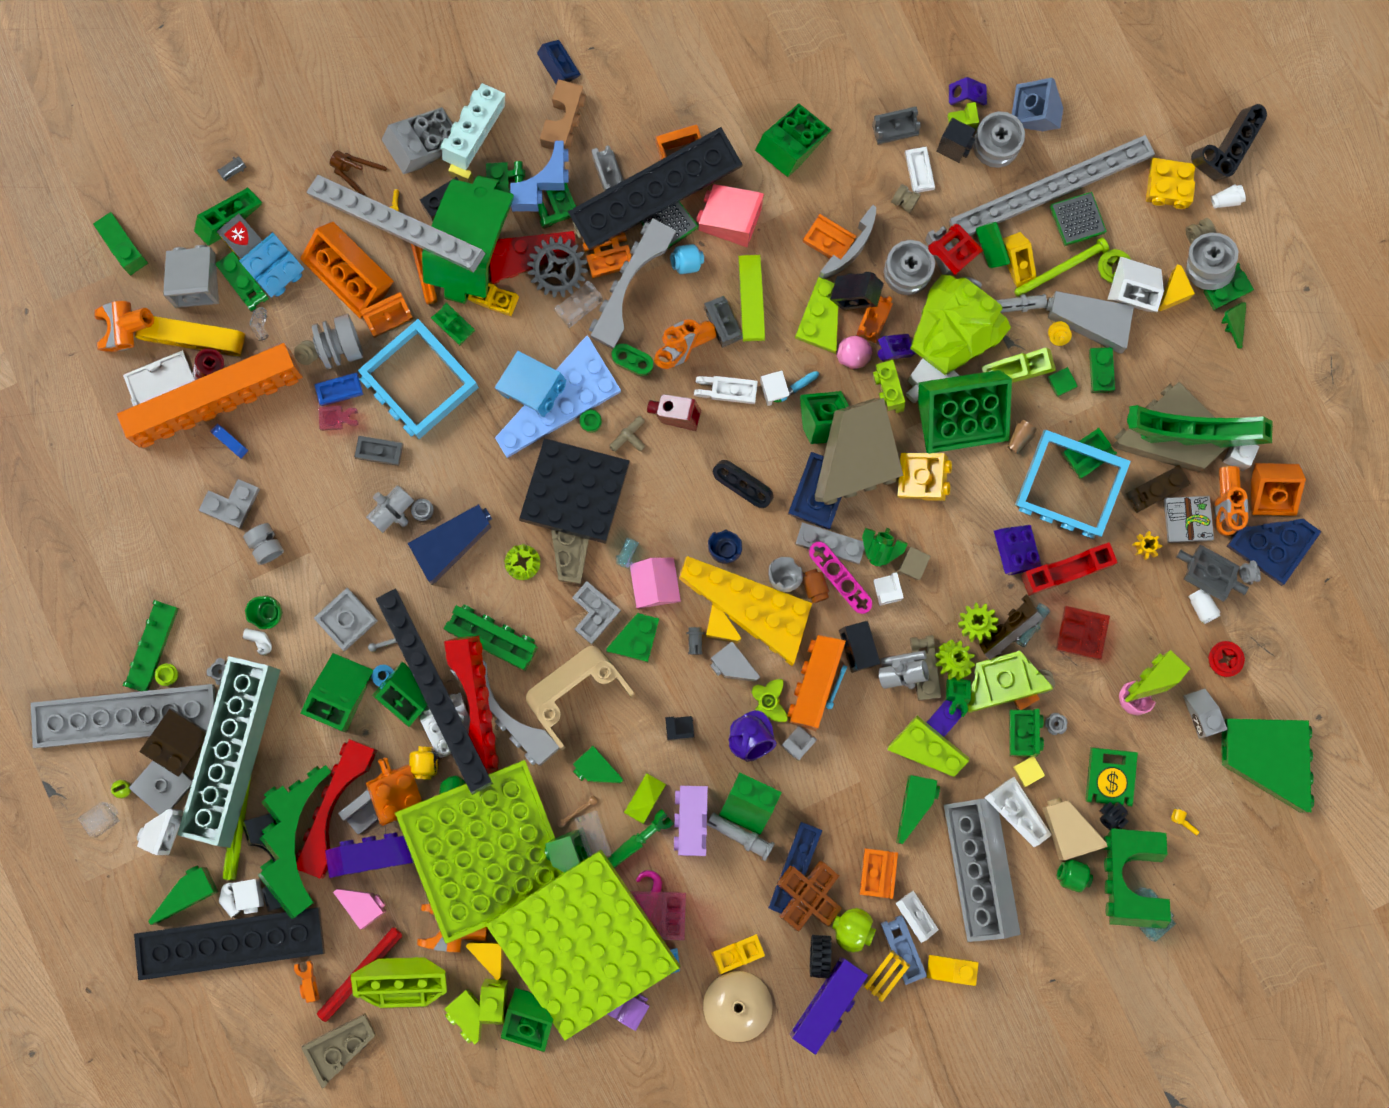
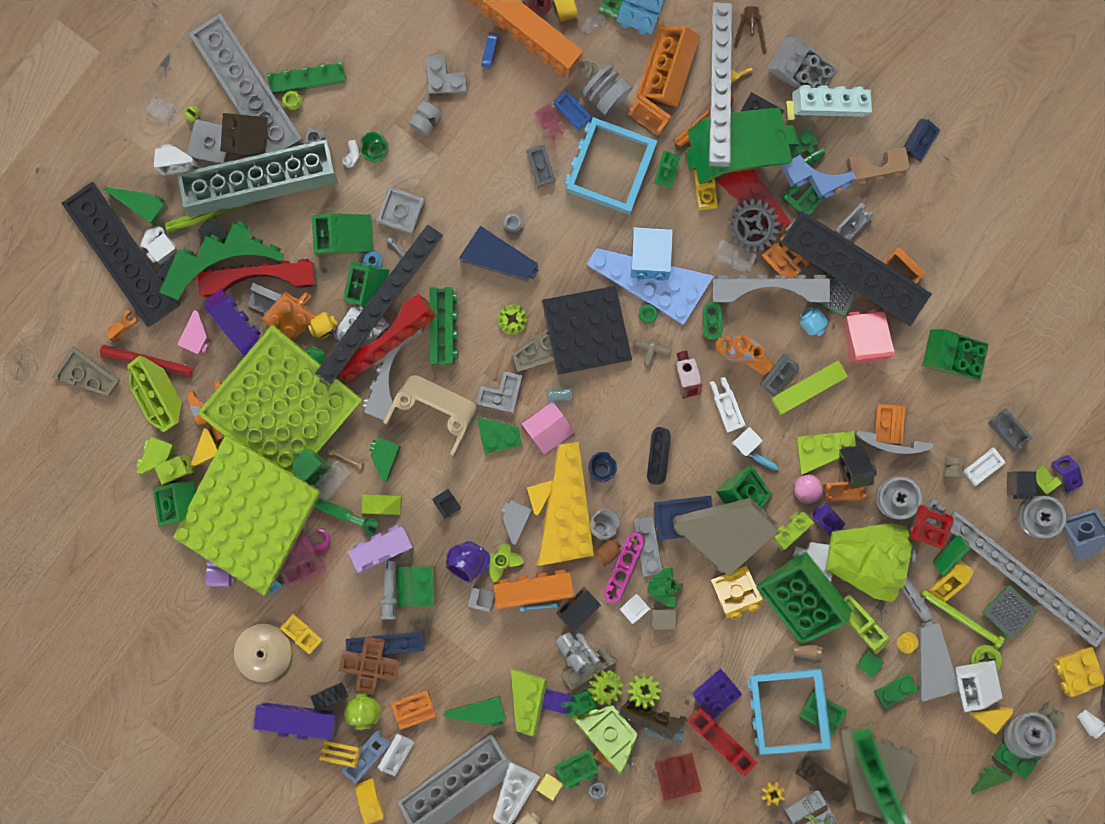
camera: 65 degrees right, 5 degrees up
(390, 509) = (500, 198): light grey pin -> none
(695, 640) = (519, 481): dark grey pin -> none

